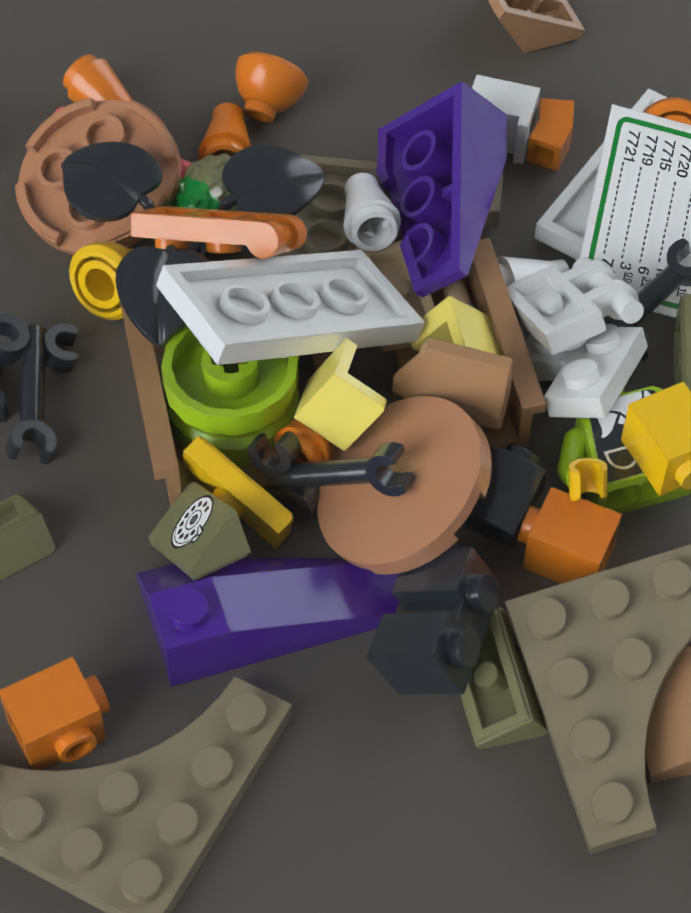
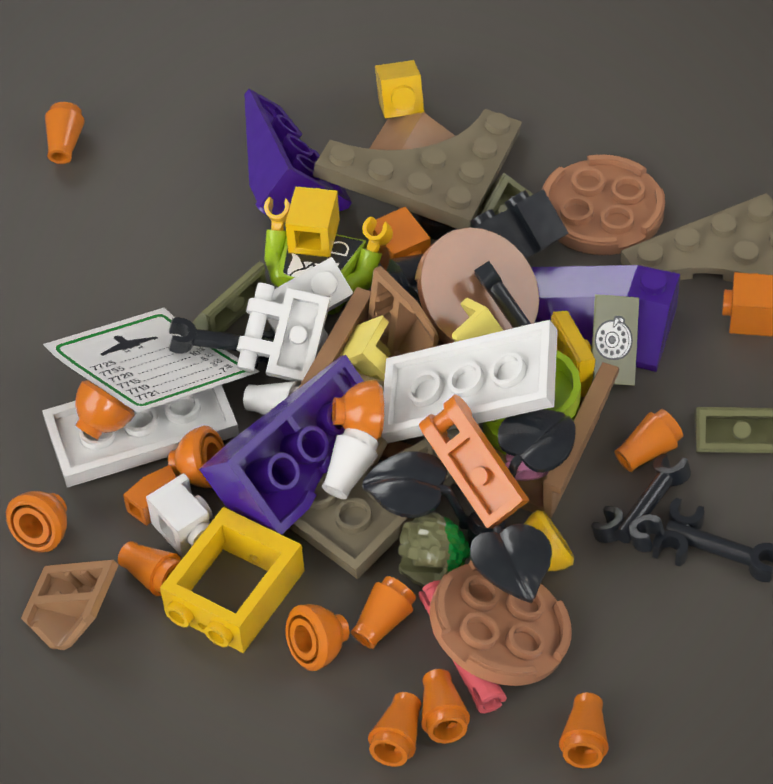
camera: 140 degrees left, 5 degrees down
(75, 461) = (652, 437): none -> orange cone
(127, 50) = (395, 733): none -> orange cone
(377, 787) = (605, 204): none -> nougat tile
(382, 50) = (246, 540): none -> yellow window
(392, 239) = (361, 408): none -> orange brick
(472, 59) = (148, 564): none -> orange cone
(536, 175) = (193, 452): none -> orange brick
(629, 48) = (37, 520): none -> orange brick

